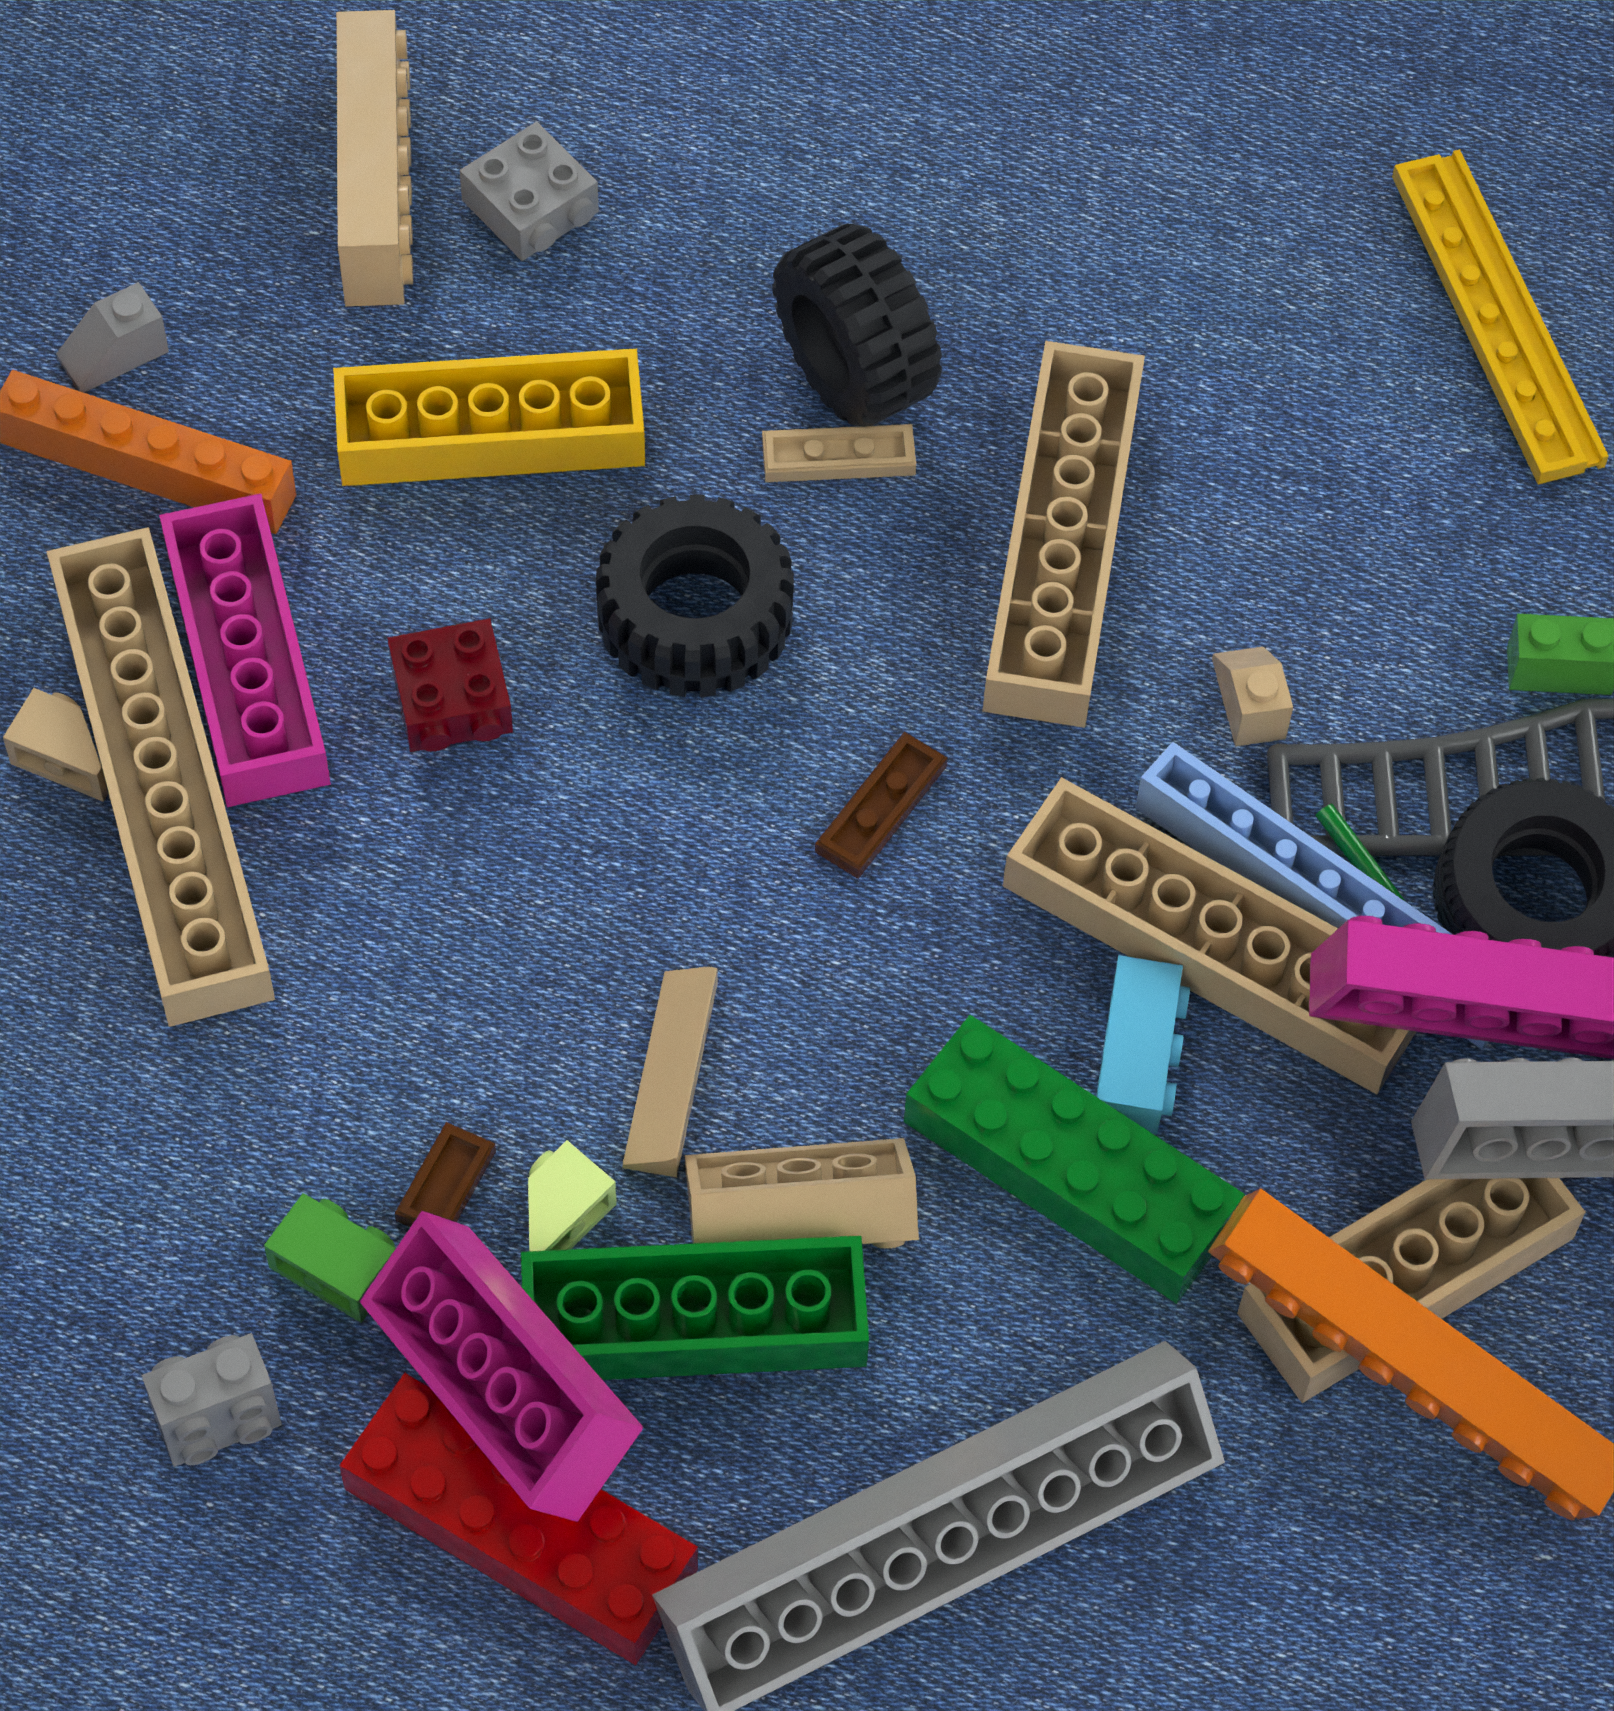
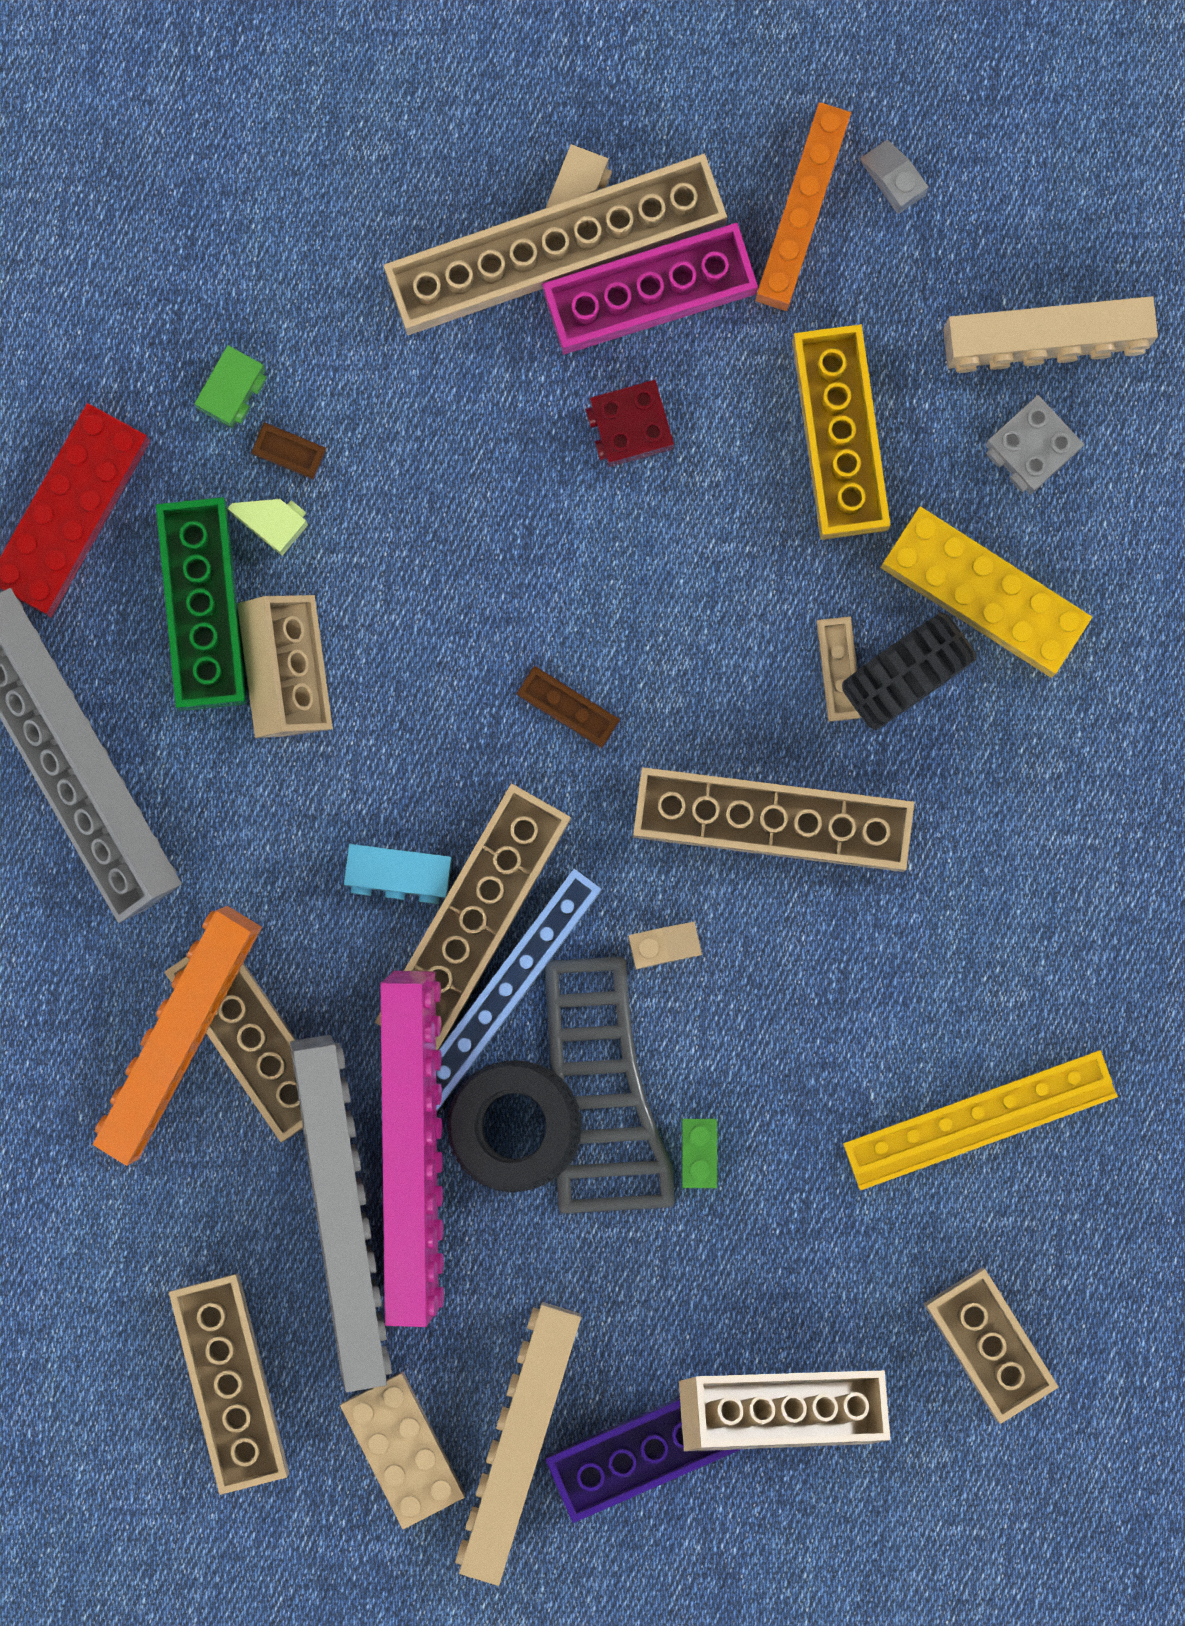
camera: 85 degrees right, 25 degrees up
(212, 1399) = (121, 313): light grey brick -> none
(501, 1367) = (139, 488): dark pink brick -> none
(671, 1071) = (369, 583): tan slope -> none
(695, 539) = (706, 530): black tyre -> none
(721, 271) = (986, 592): none -> yellow brick
(1071, 1157) = (316, 830): green brick -> none
(1353, 847) = (529, 1021): green bar -> none

